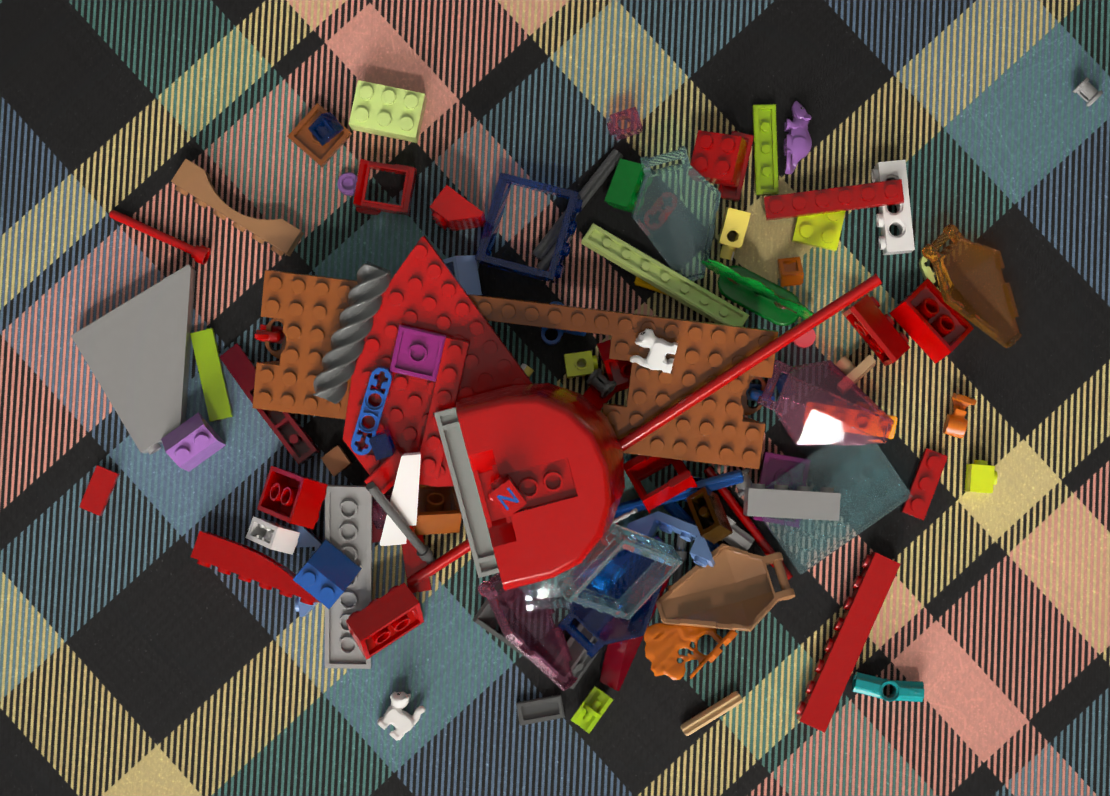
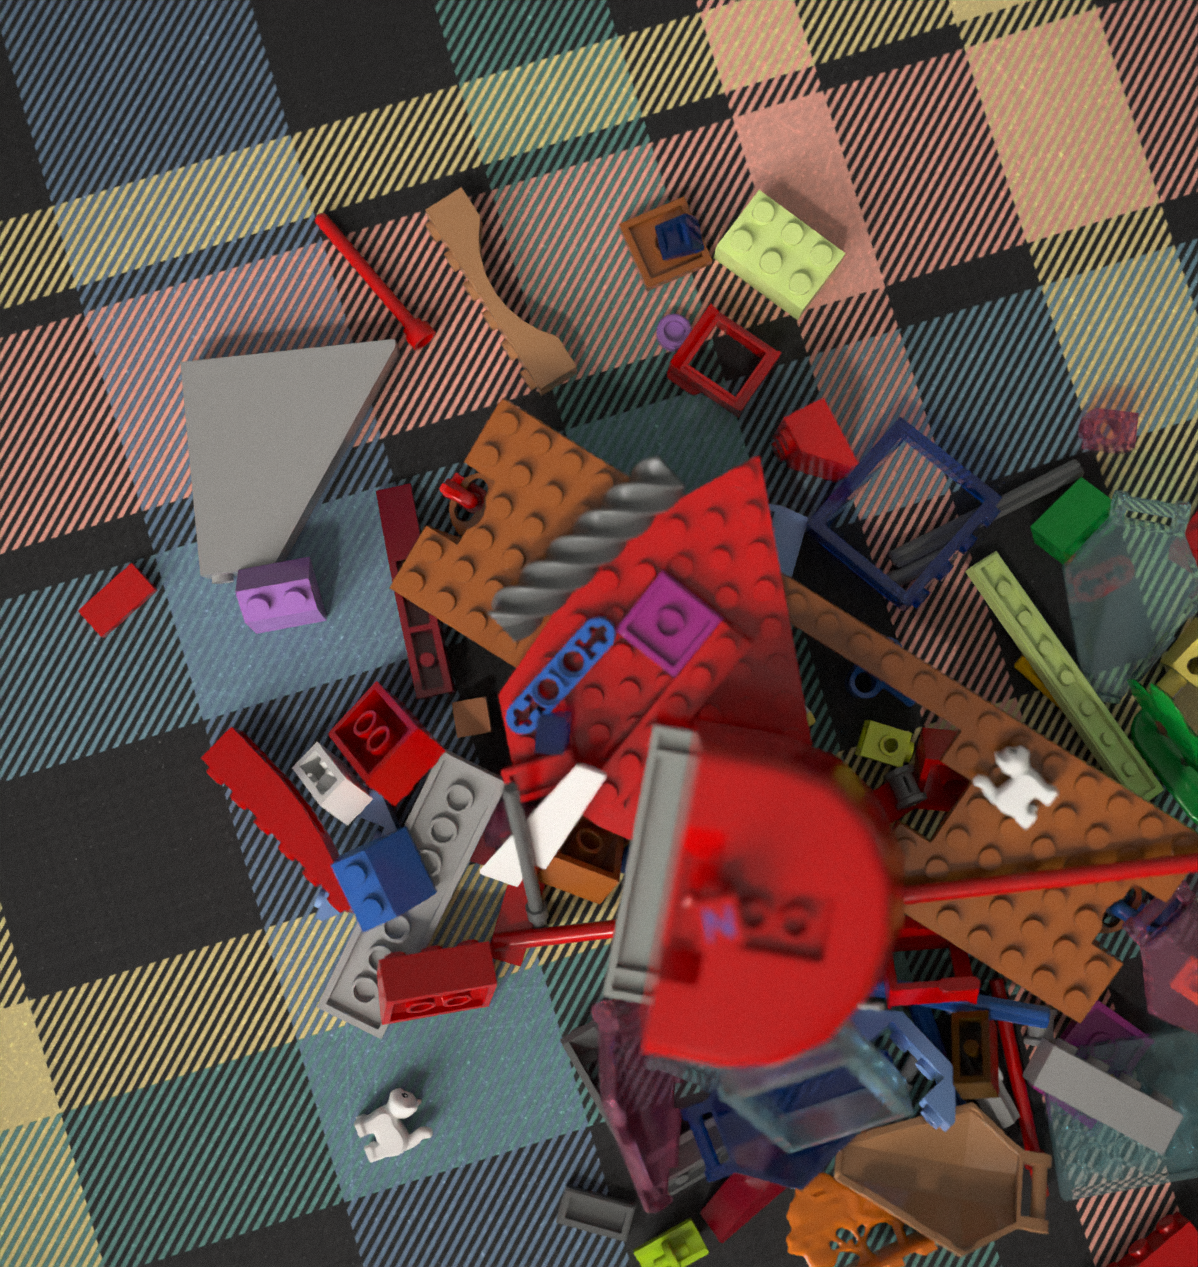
camera: 25 degrees right, 0 degrees up
(211, 375) = (353, 511): lime tile -> none

